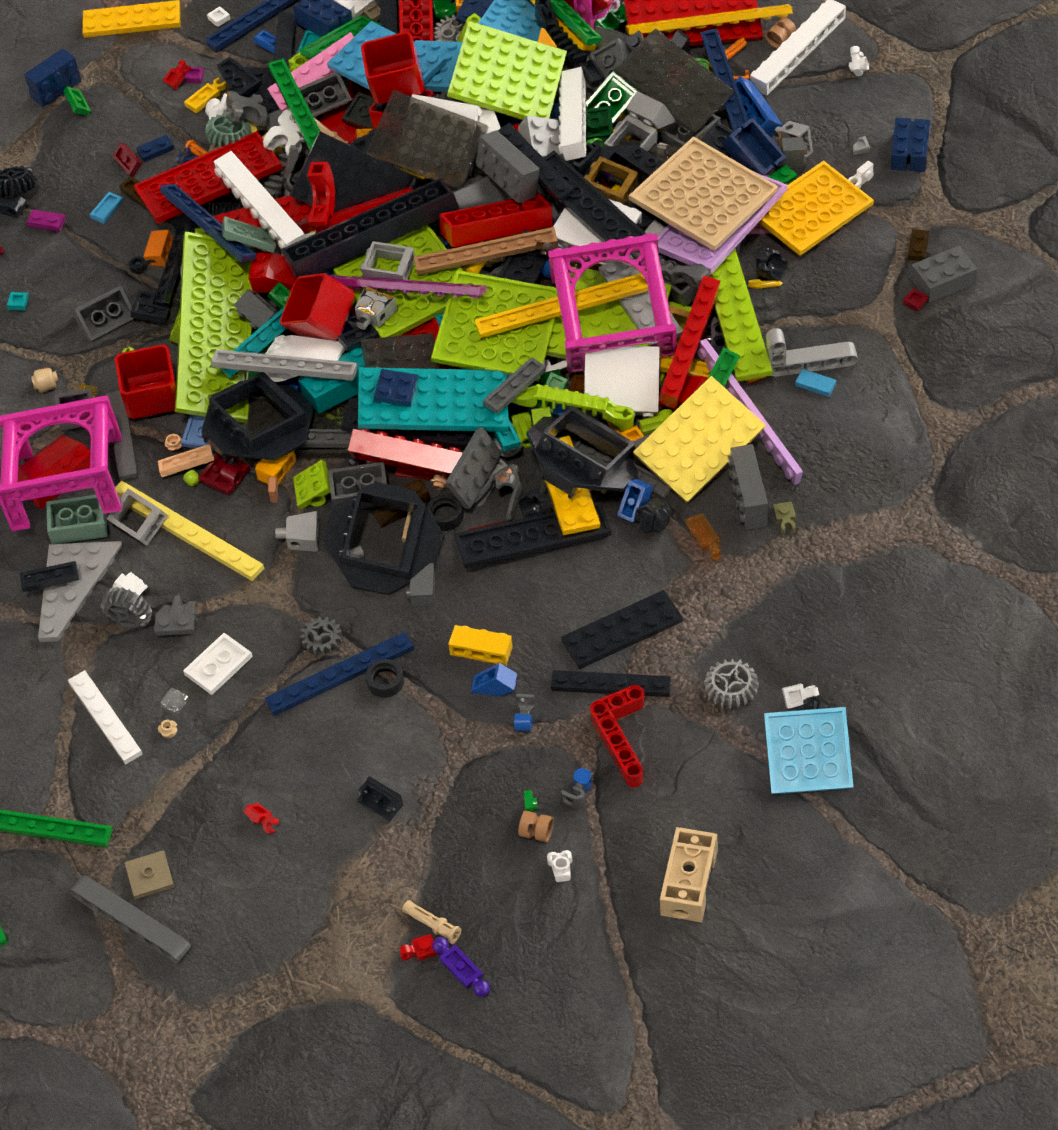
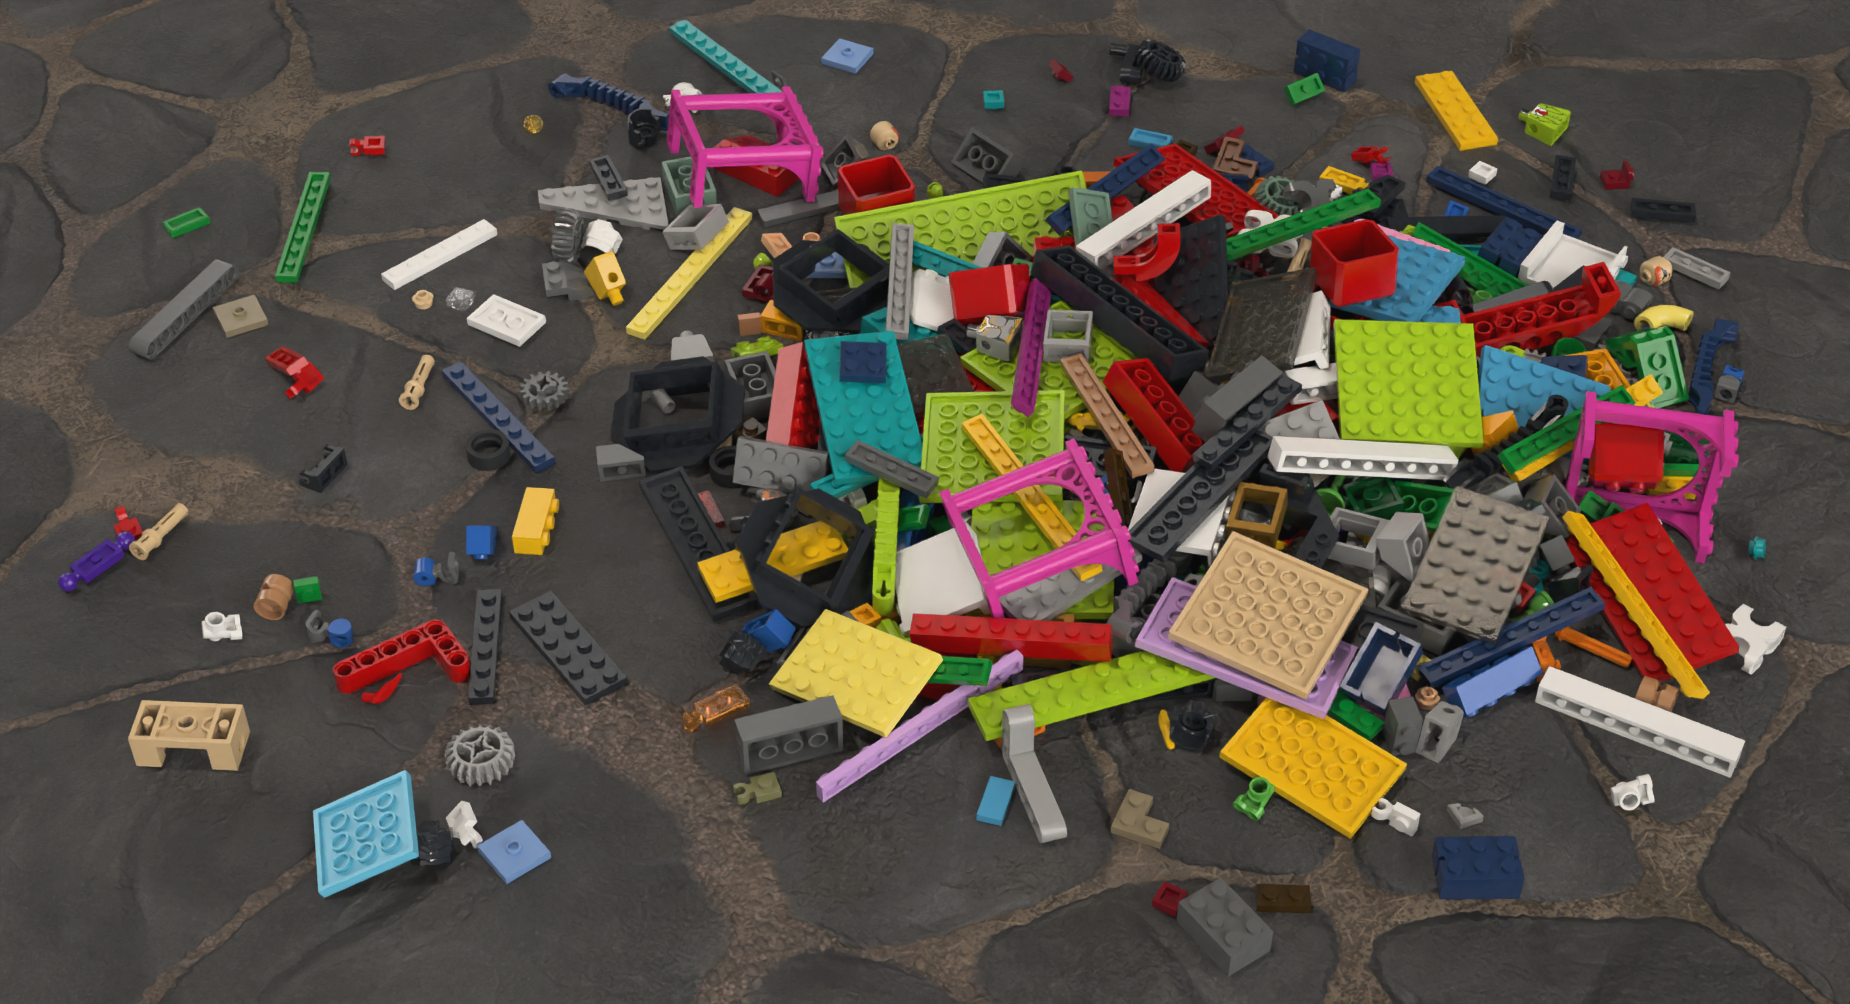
camera: 75 degrees right, 10 degrees down
(157, 160) = (1230, 162): none -> reddish brown plate
(191, 582) = (606, 277): none -> yellow torso
(238, 825) = (286, 361): none -> red plate
(291, 732) = (415, 387): none -> tan pin
(655, 753) = (384, 693): none -> red bar
(825, 666) = (514, 851): none -> medium blue plate
(836, 244) = (1255, 798): none -> bright green plate
(843, 312) = (1135, 824): none -> dark tan plate

